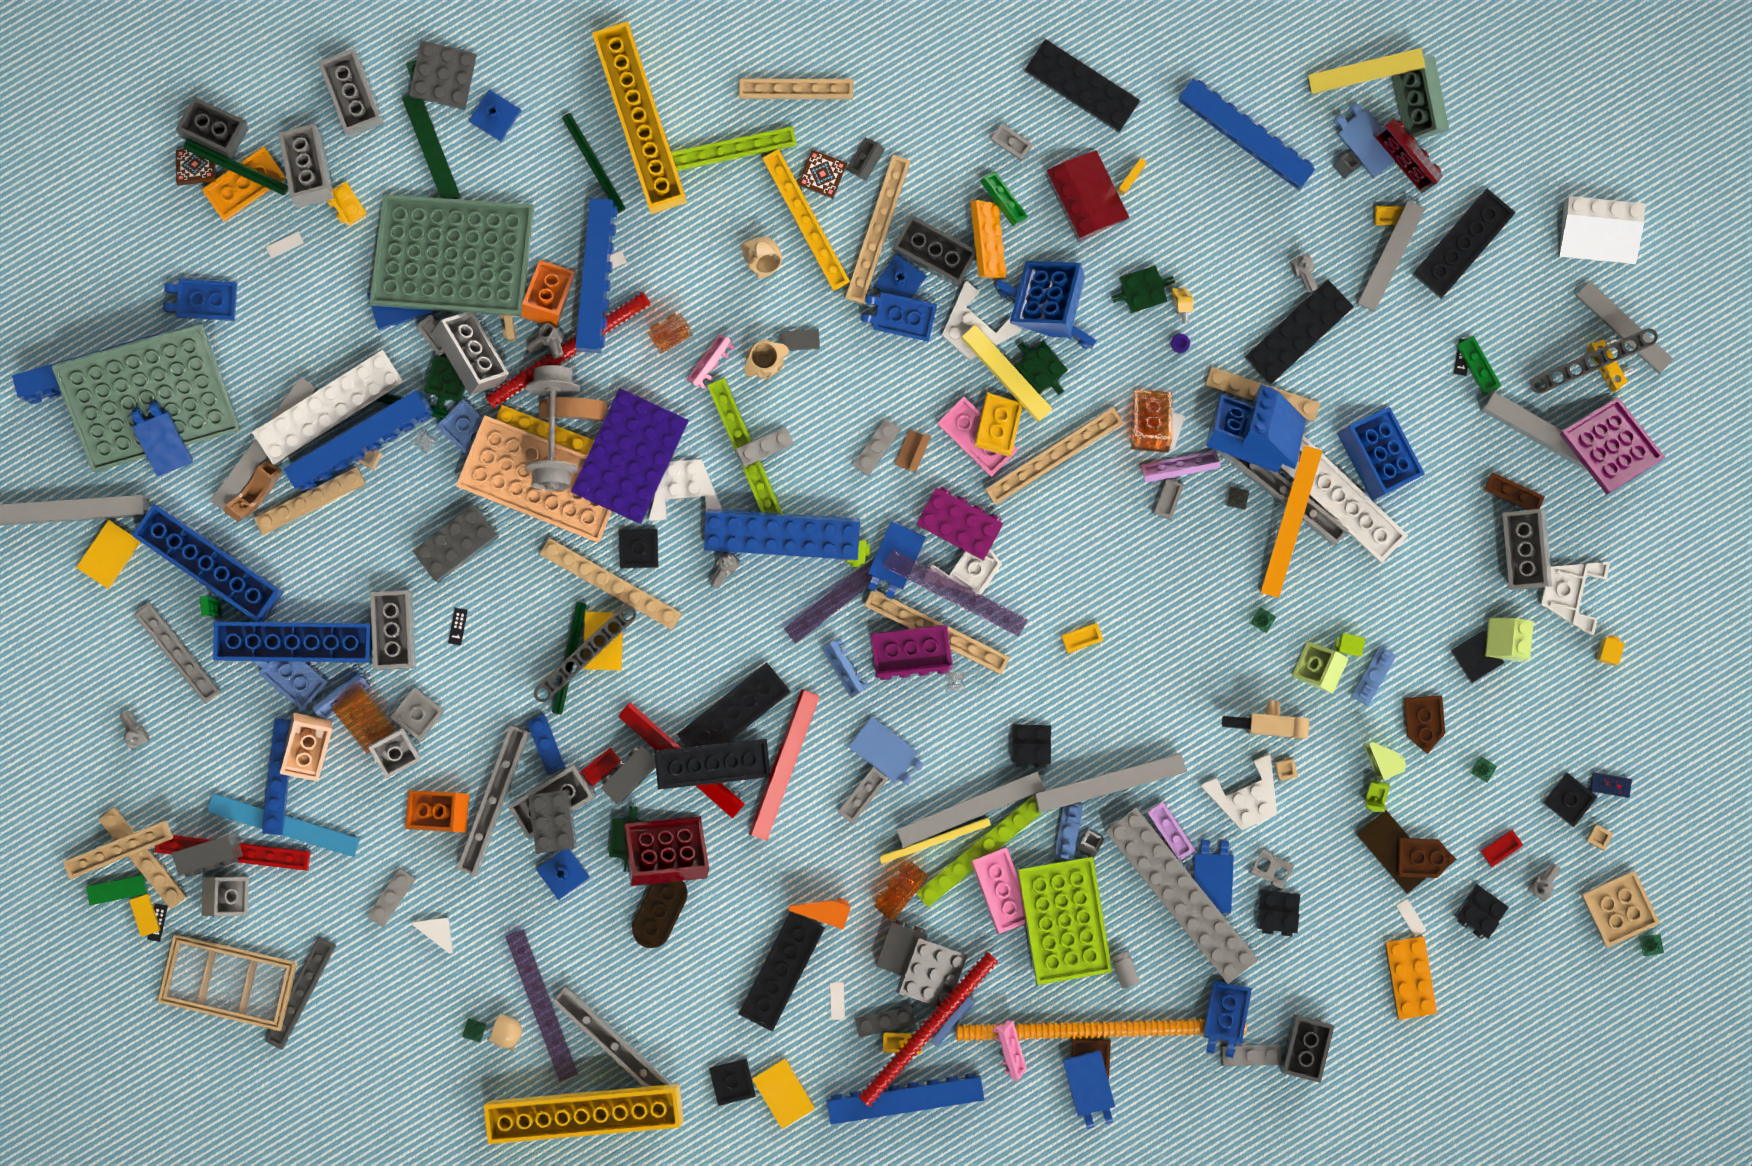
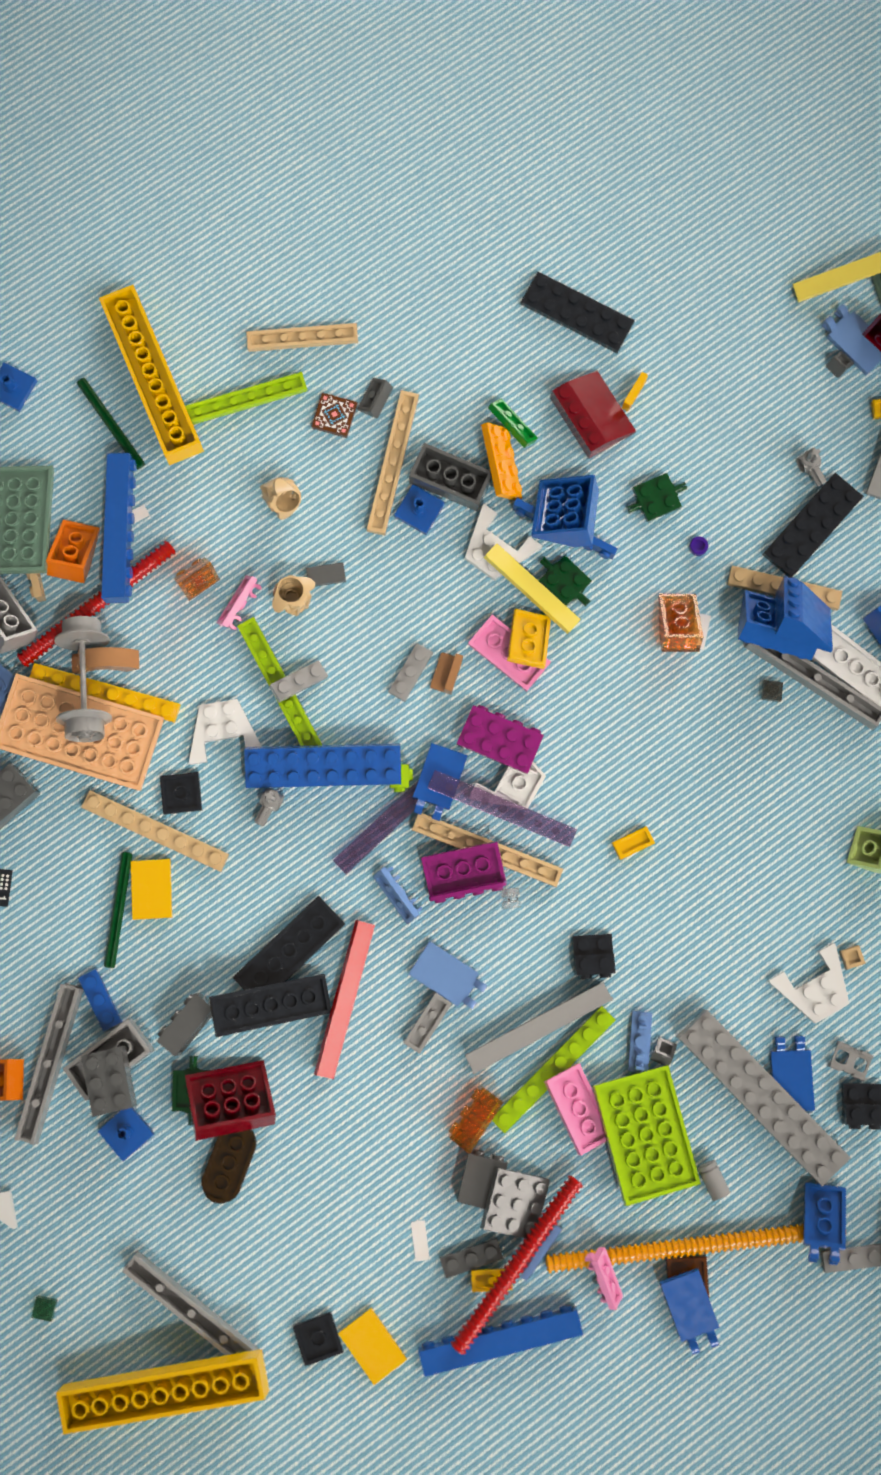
camera: 10 degrees left, 5 degrees down
(506, 1032) = (76, 1308): tan helmet -> none
(541, 1005) = (112, 1275): clear purple tile -> none
(549, 337) = (76, 592): light grey axle -> none
(575, 656) = (123, 907): dark grey beam -> none
(601, 767) = (157, 1018): red tile -> none
(630, 456) = (164, 701): dark purple plate -> none
(659, 741) = (216, 986): red tile -> none
(781, 970) = (359, 1215): black plate -> none
(806, 220) = (322, 459): yellow plate -> none
(827, 911) = (400, 1148): orange slope -> none
(901, 316) = (423, 542): blue tile -> none
(935, 840) = (504, 1063): light yellow tile -> none
(1011, 142) = (515, 369): light grey plate -> none
(1054, 456) = (586, 665): tan plate -> none
(1109, 783) = (677, 987): light grey tile -> none
(1168, 499) = (704, 697): light grey tile -> none
(1170, 831) = (744, 1031): lavender plate -> none
(1180, 466) = (712, 664): lavender plate -> none
(1183, 302) = (698, 503): yellow piece -> none
(1246, 134) = (740, 343): blue brick -> none
(1262, 620) = (811, 808): clear green plate -> none
(1270, 723) = (835, 911): tan piece -> none
(1291, 521) = (830, 707): light orange tile -> none

